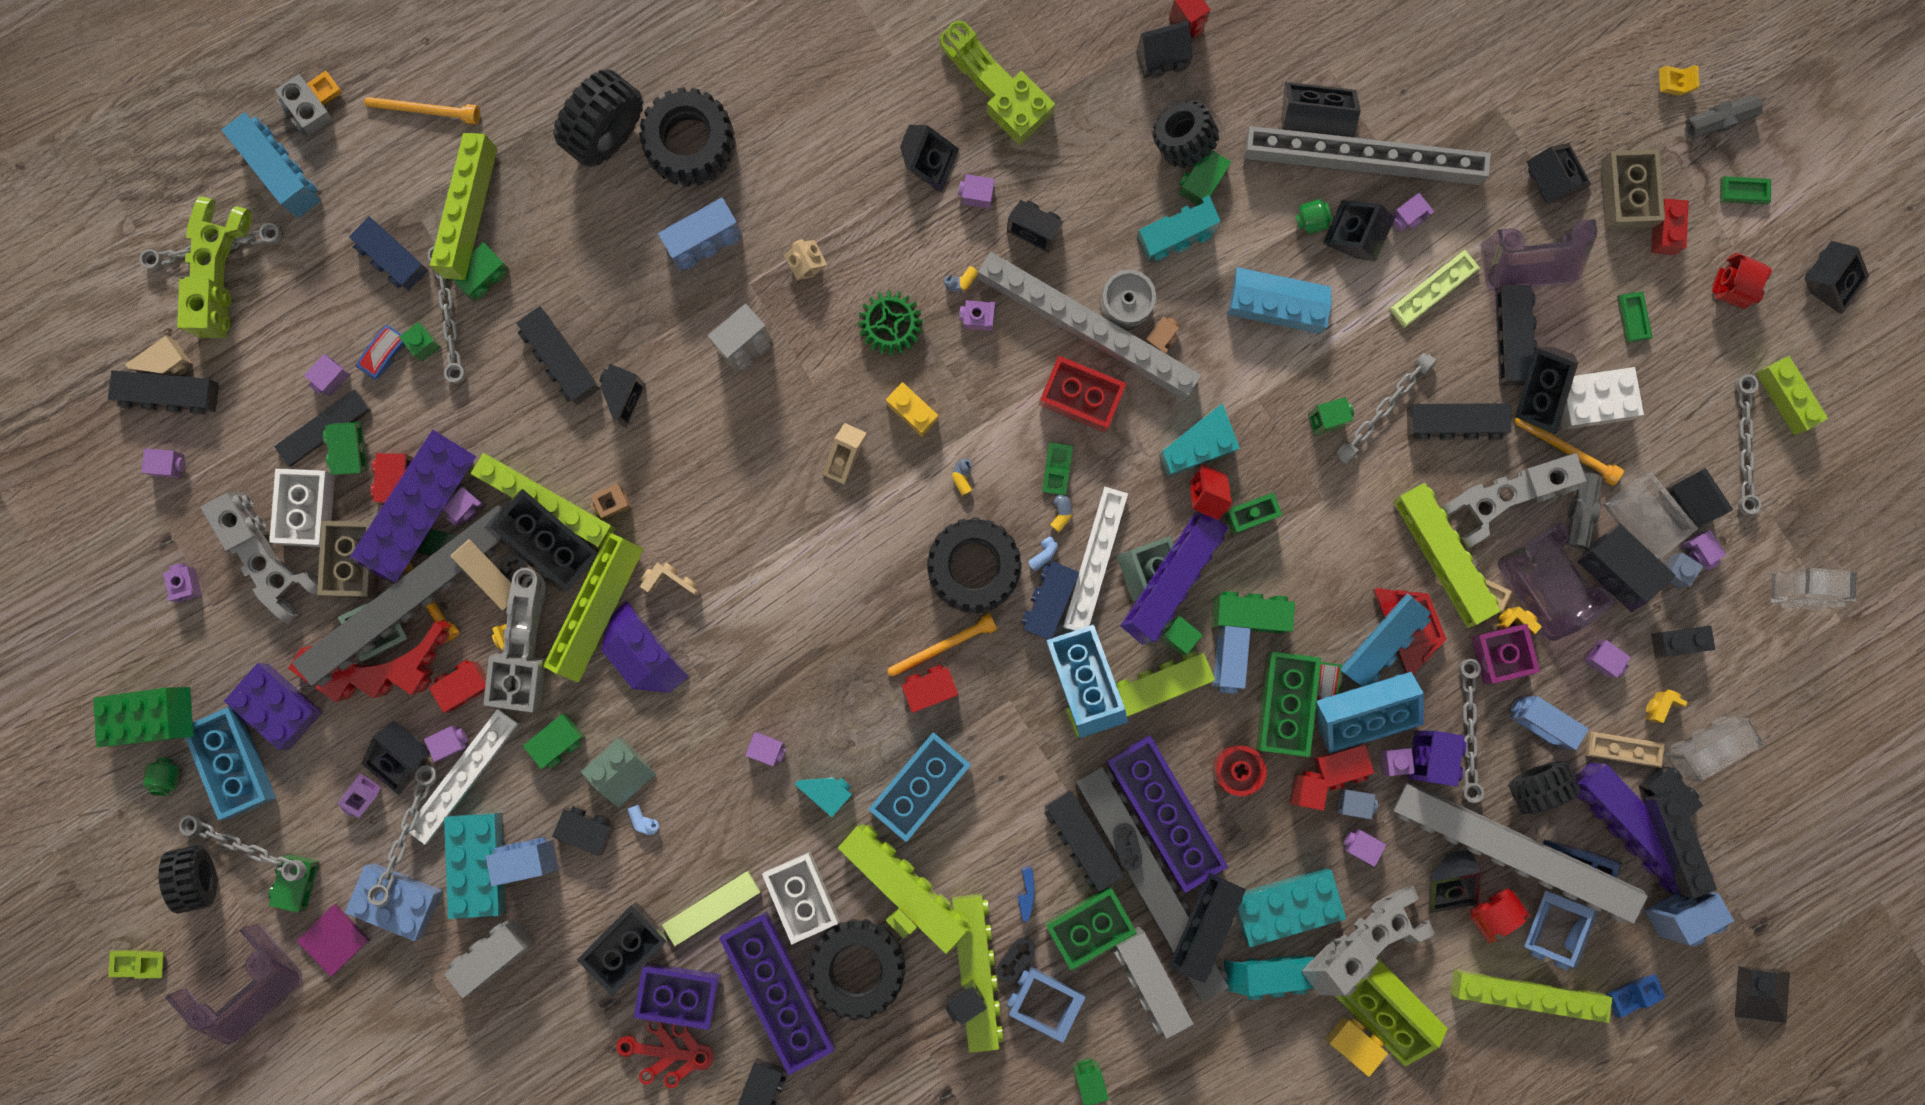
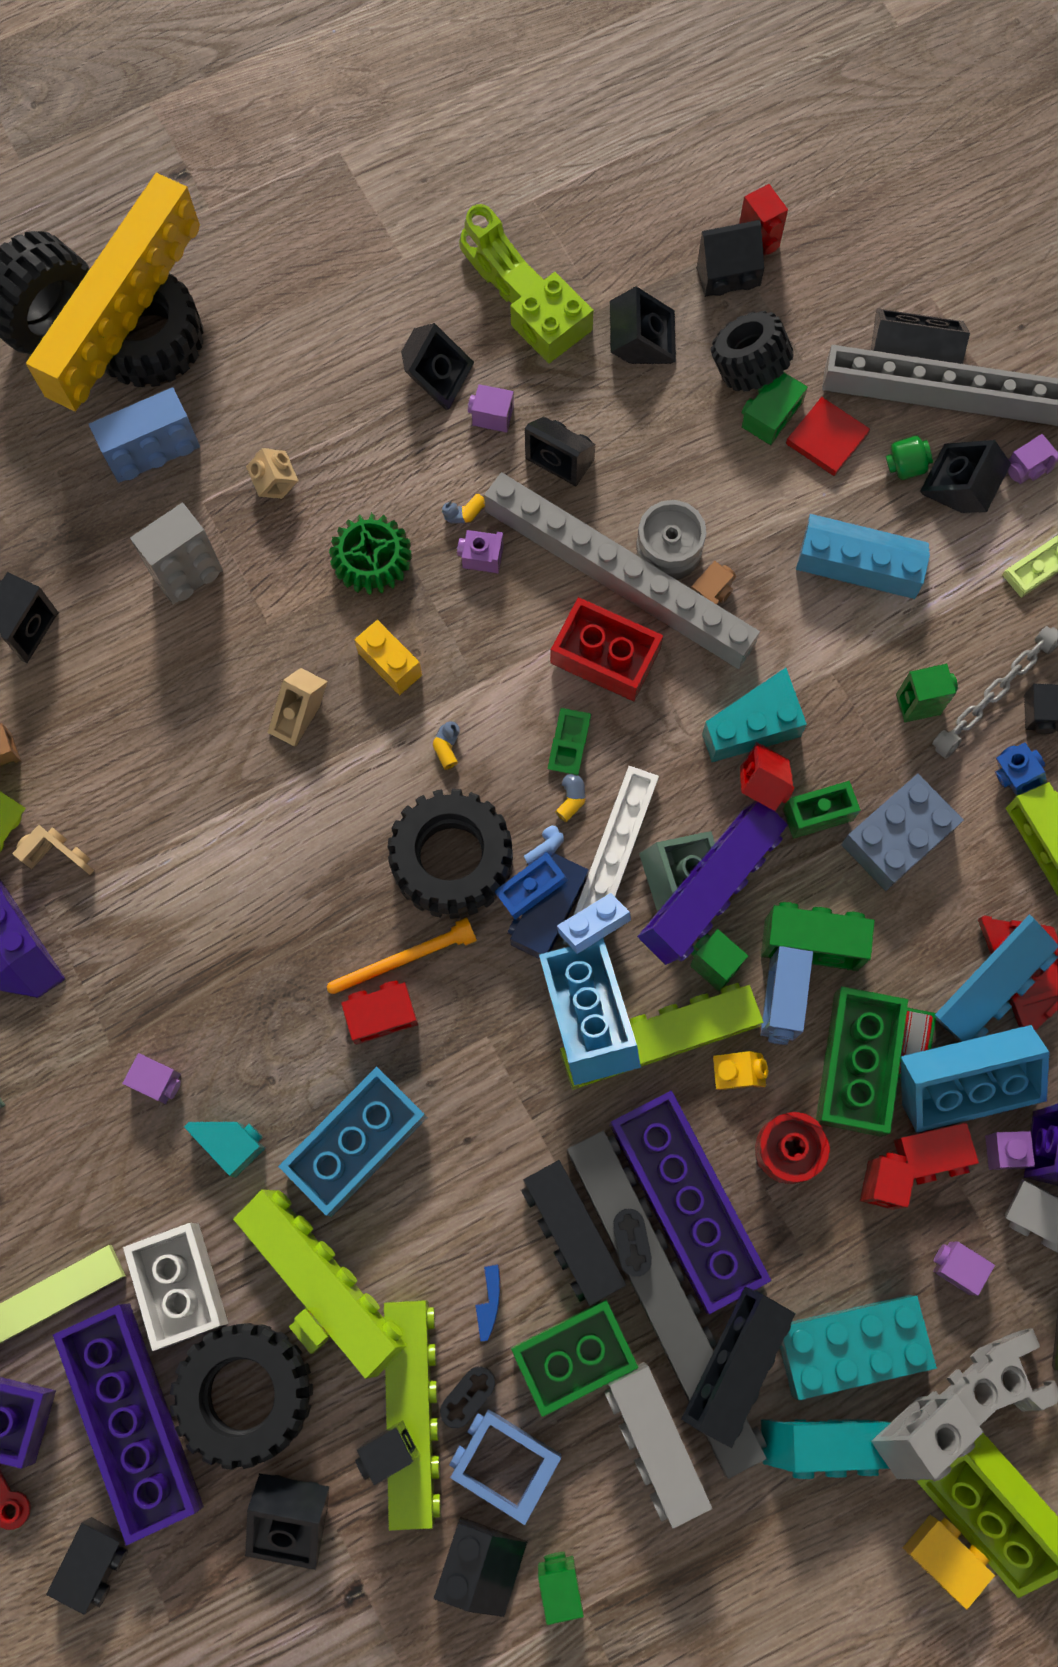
camera: 10 degrees right, 10 degrees down
(669, 120) = (114, 293): none -> yellow brick
(896, 1051) = (286, 1521): none -> black slope
(1033, 1073) = (480, 1569): none -> black slope
(1037, 589) = (531, 885): none -> blue plate
(1086, 613) = (593, 923): none -> light blue plate
(1095, 114) = (642, 329): none -> black slope
(1179, 231) = (740, 465): teal wedge -> none
(1199, 715) = (740, 1070): none -> yellow bracket
(1248, 199) = (827, 436): none -> red tile
(1314, 527) = (901, 832): none -> sand blue brick
(1357, 804) = (954, 1206): sand blue brick -> none
(1403, 472) = (1020, 769): none -> blue brick

